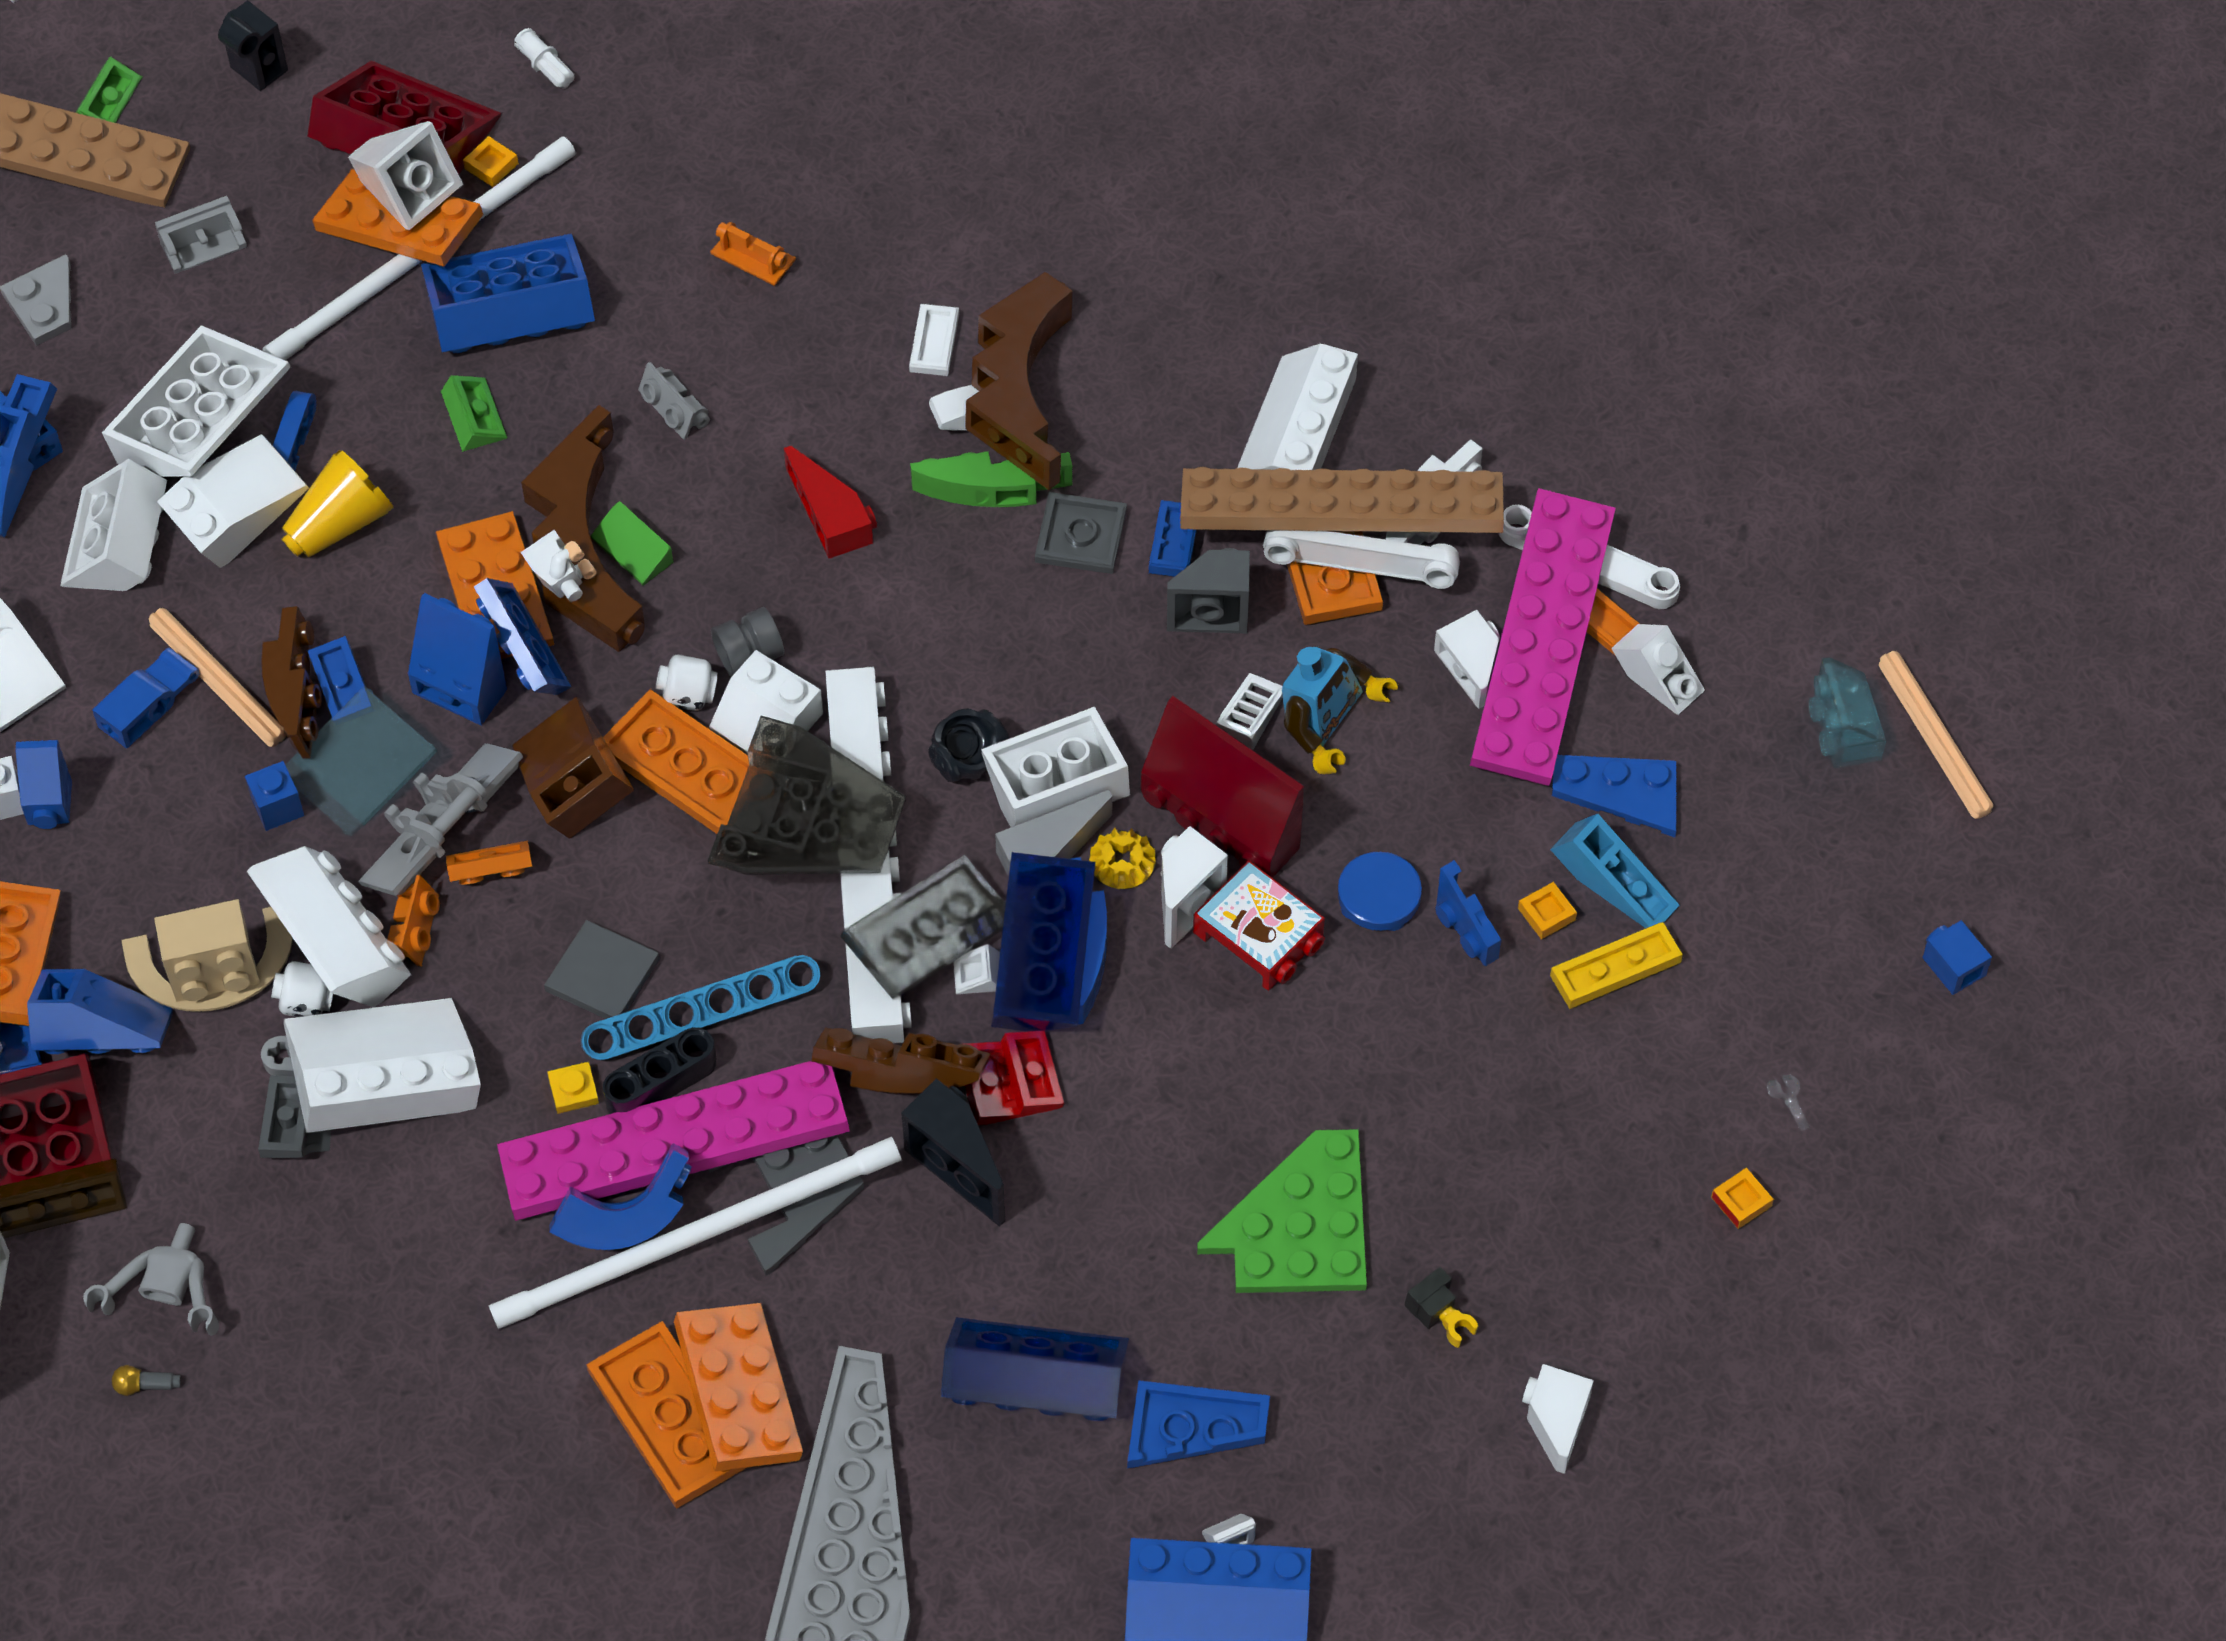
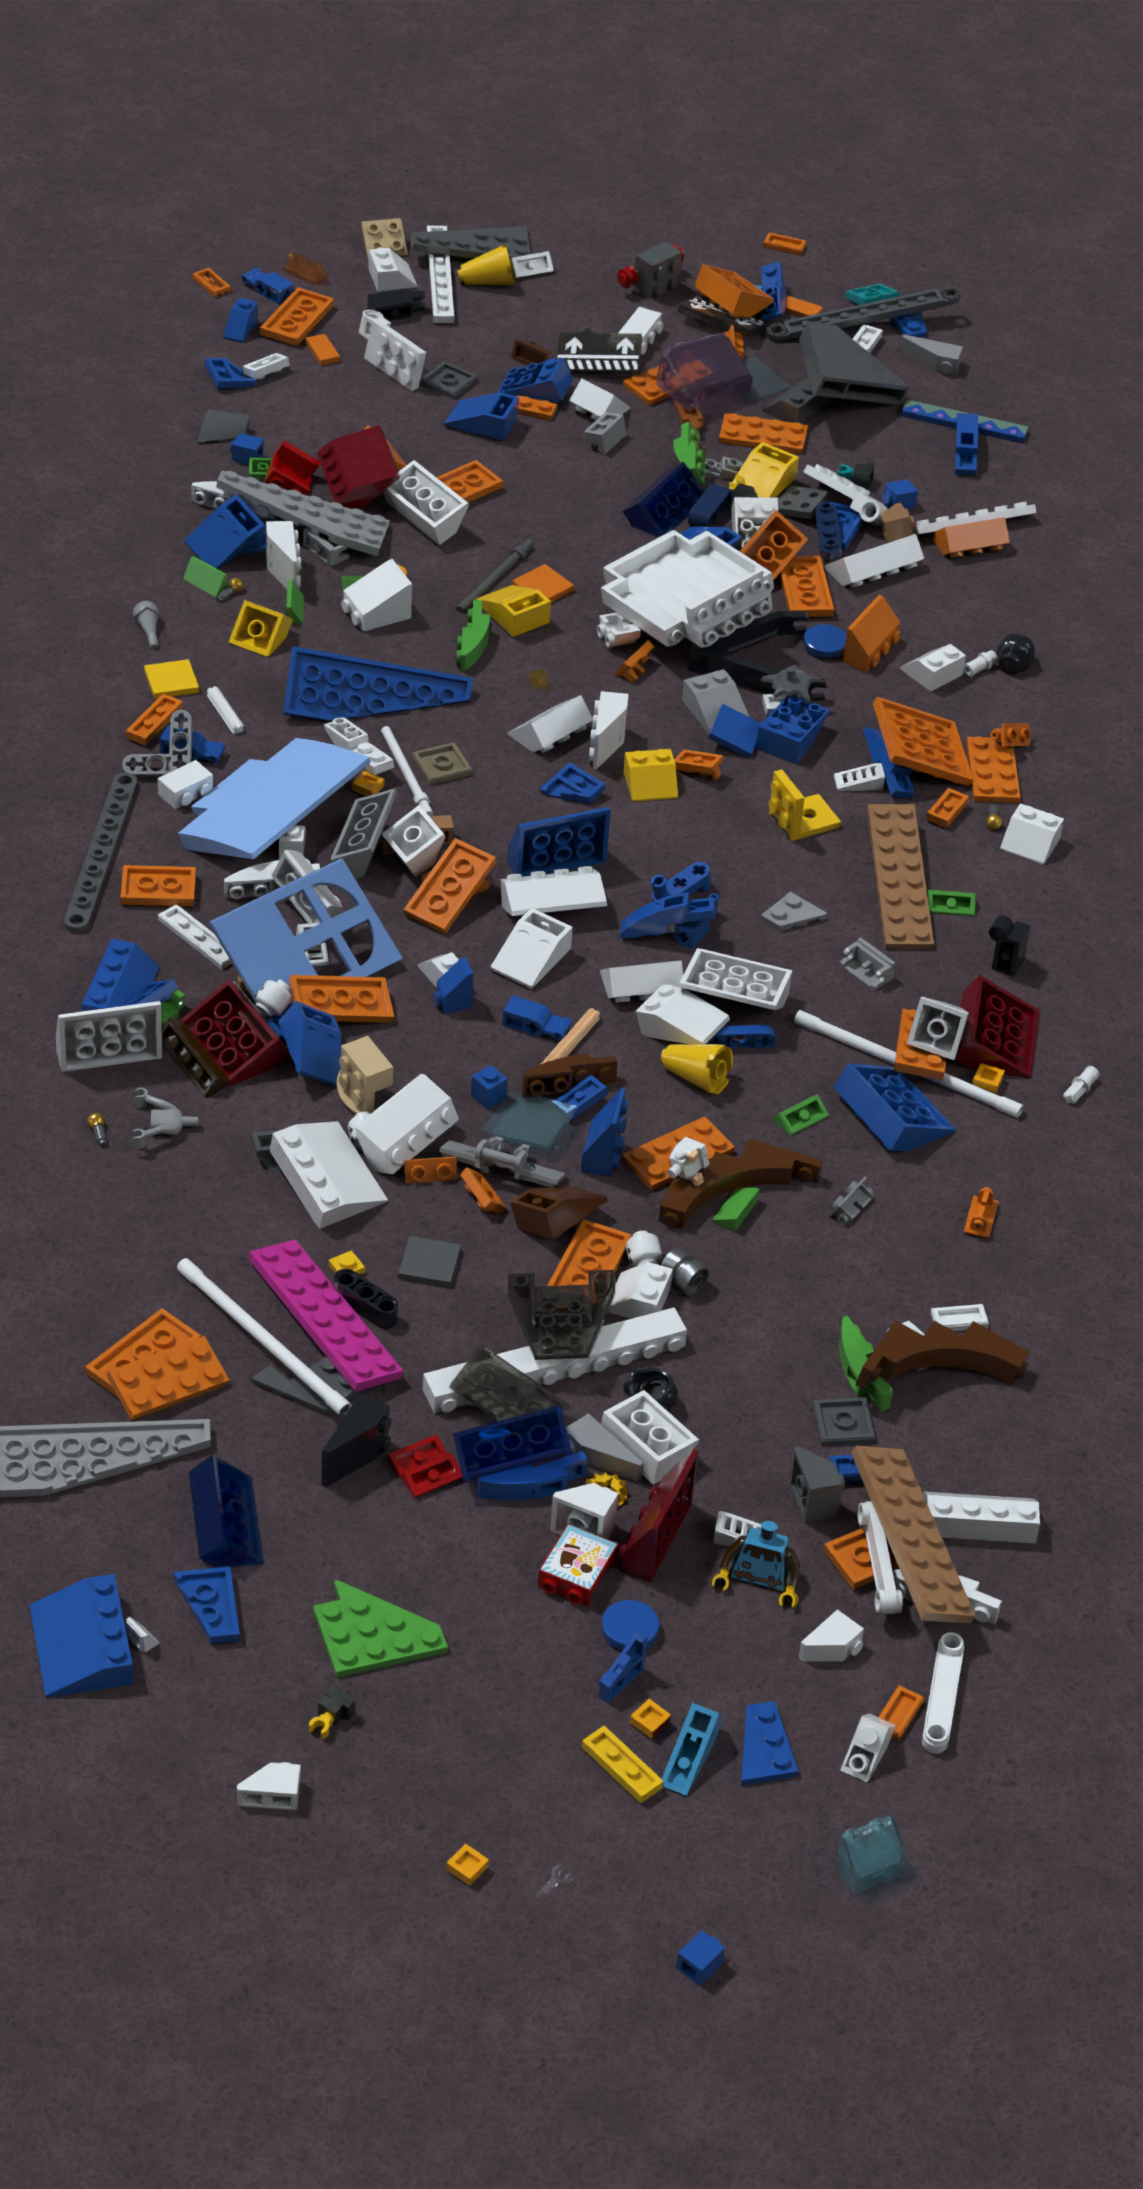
camera: 70 degrees right, 15 degrees down
(521, 637) = (633, 1158): blue plate -> none
(628, 1223) = (253, 1292): blue arch -> none
(699, 1002) = (419, 1308): dark azure beam -> none
(831, 506) = (798, 1293): red slope -> none
(899, 1069) = (407, 1401): reddish brown slope -> none
(1543, 637) = (862, 1672): dark pink plate -> none
(1935, 735) = (885, 1922): light nougat axle -> none

